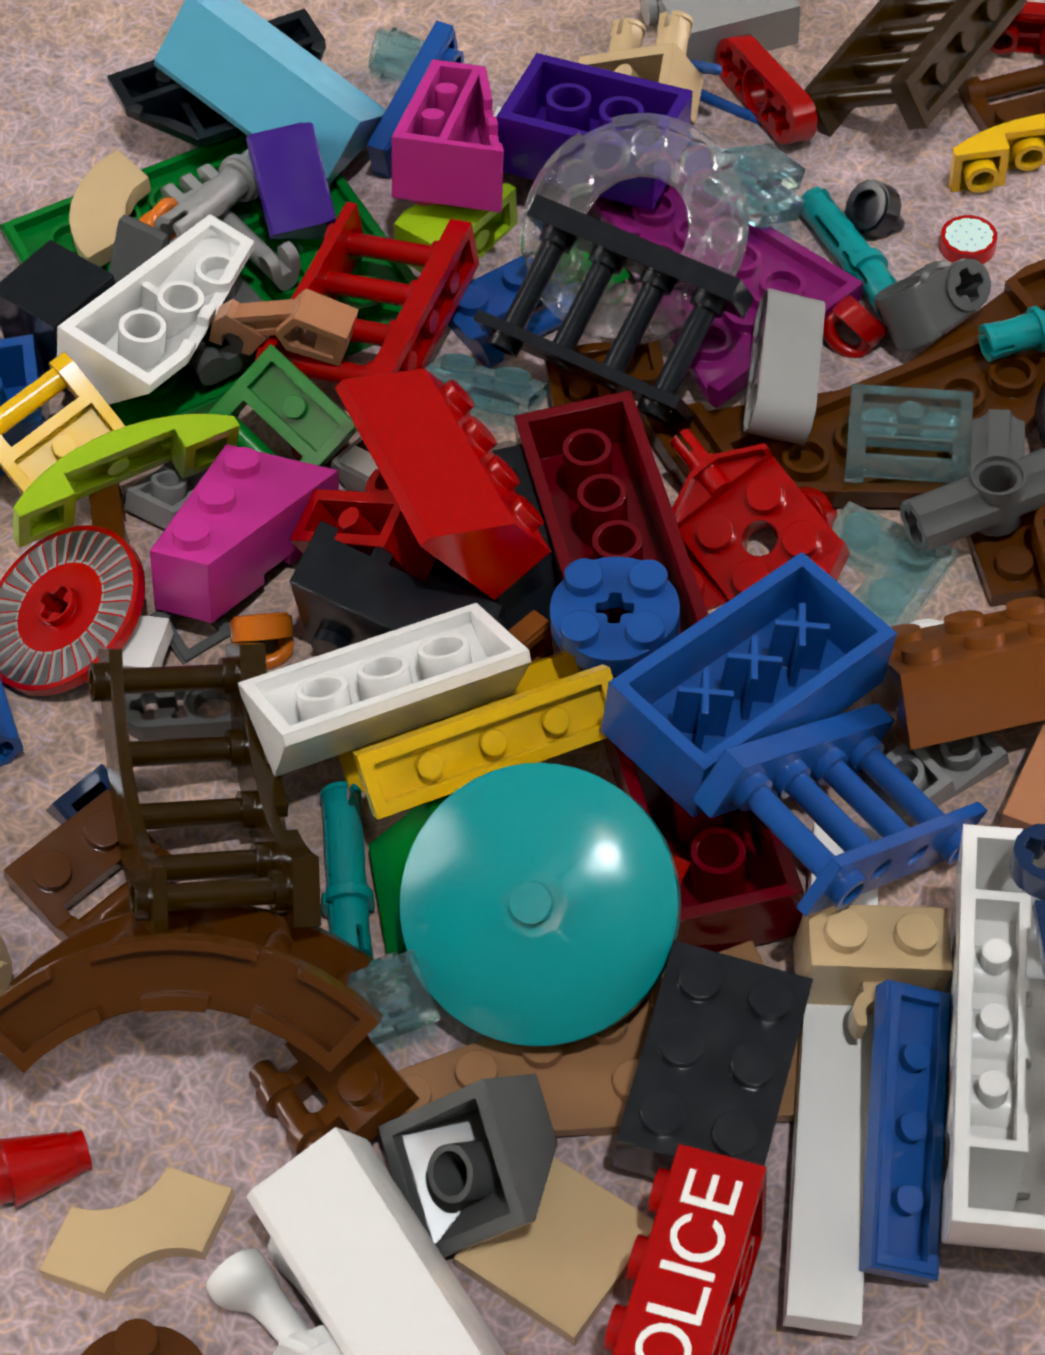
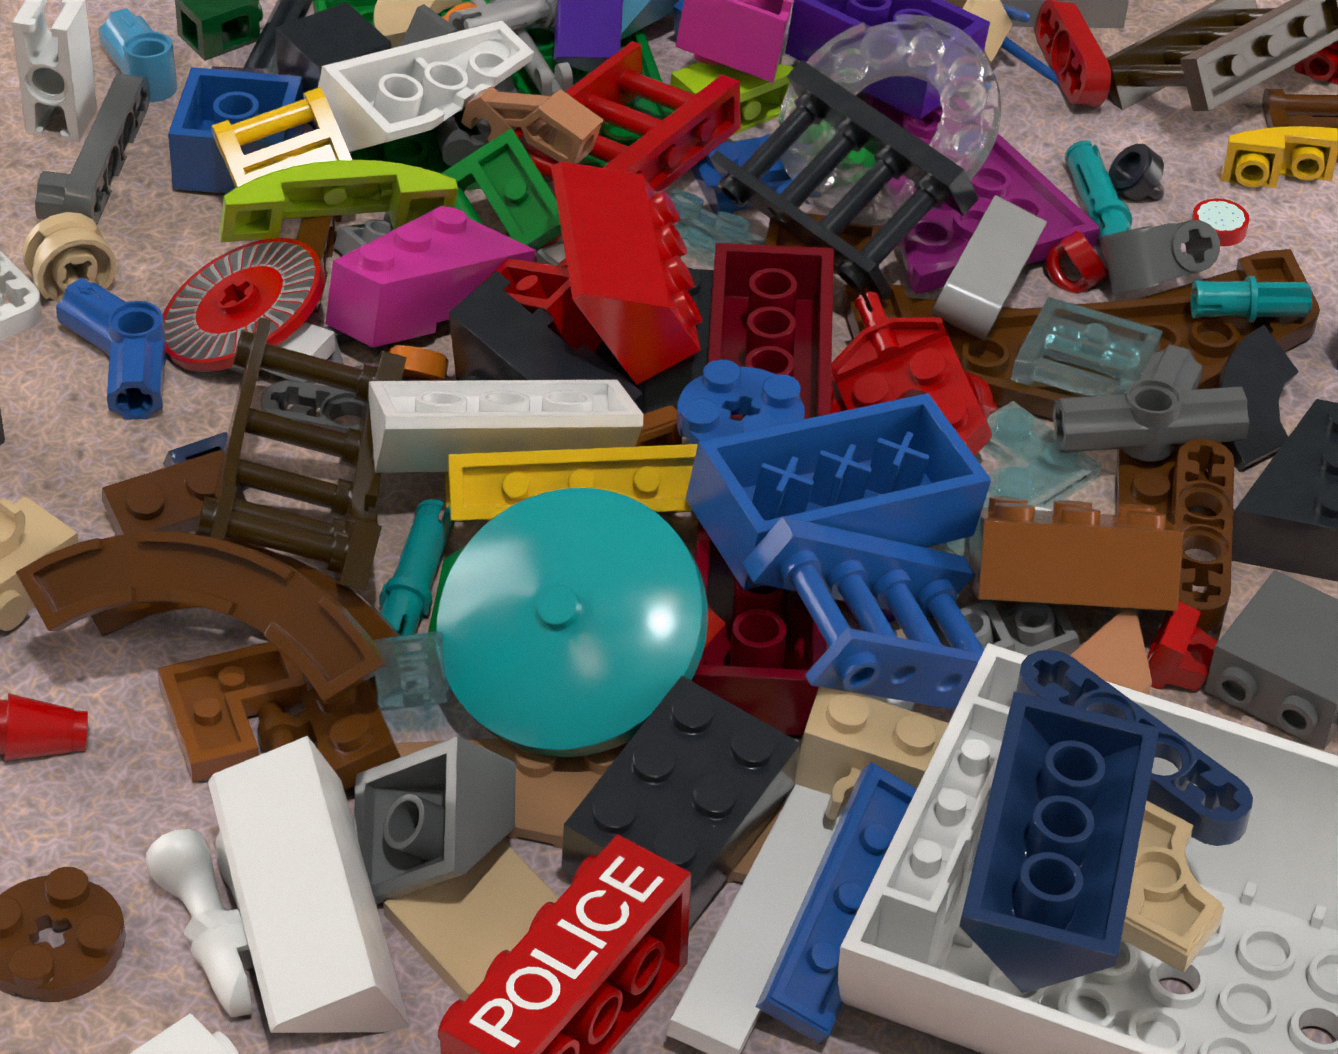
camera: 10 degrees right, 10 degrees down
(107, 1245) = (71, 810): tan tile -> none
(199, 1086) = (215, 696): none -> dark orange plate
(767, 183) = (1036, 125): clear light blue plate -> none

